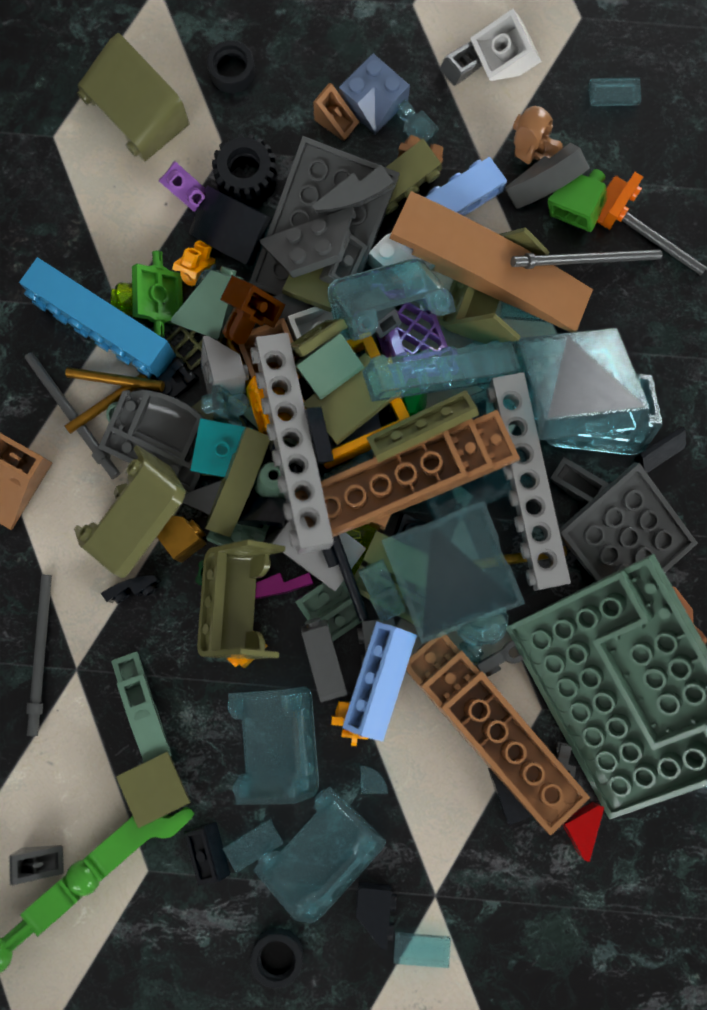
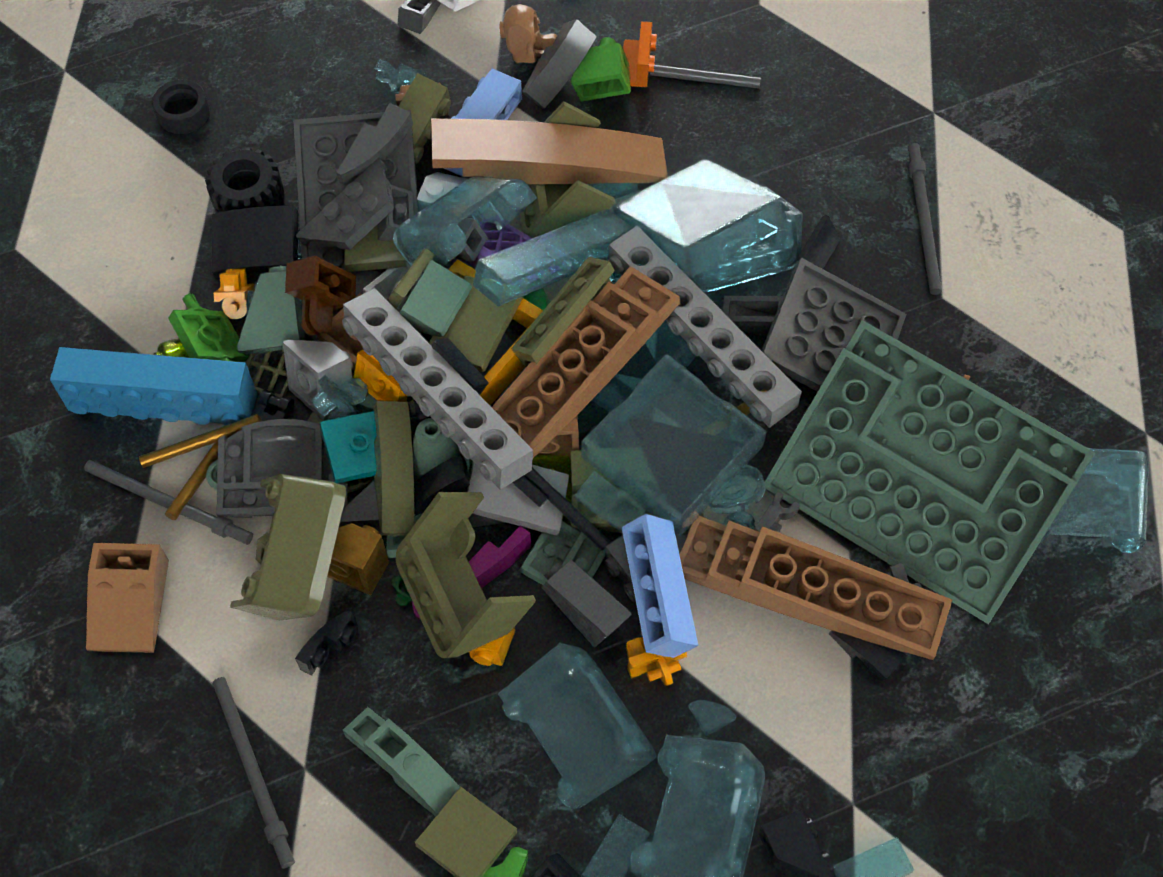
camera: 25 degrees left, 20 degrees down
(133, 98) = (92, 169): olive windscreen -> none
(183, 186) = (186, 227): medium lavender hips -> none
(334, 113) = (310, 99): medium nougat slope -> none
(374, 93) = (343, 68): sand blue slope -> none
(530, 260) = (585, 131): dark grey bar -> none
(583, 828) = (966, 645): red slope -> none

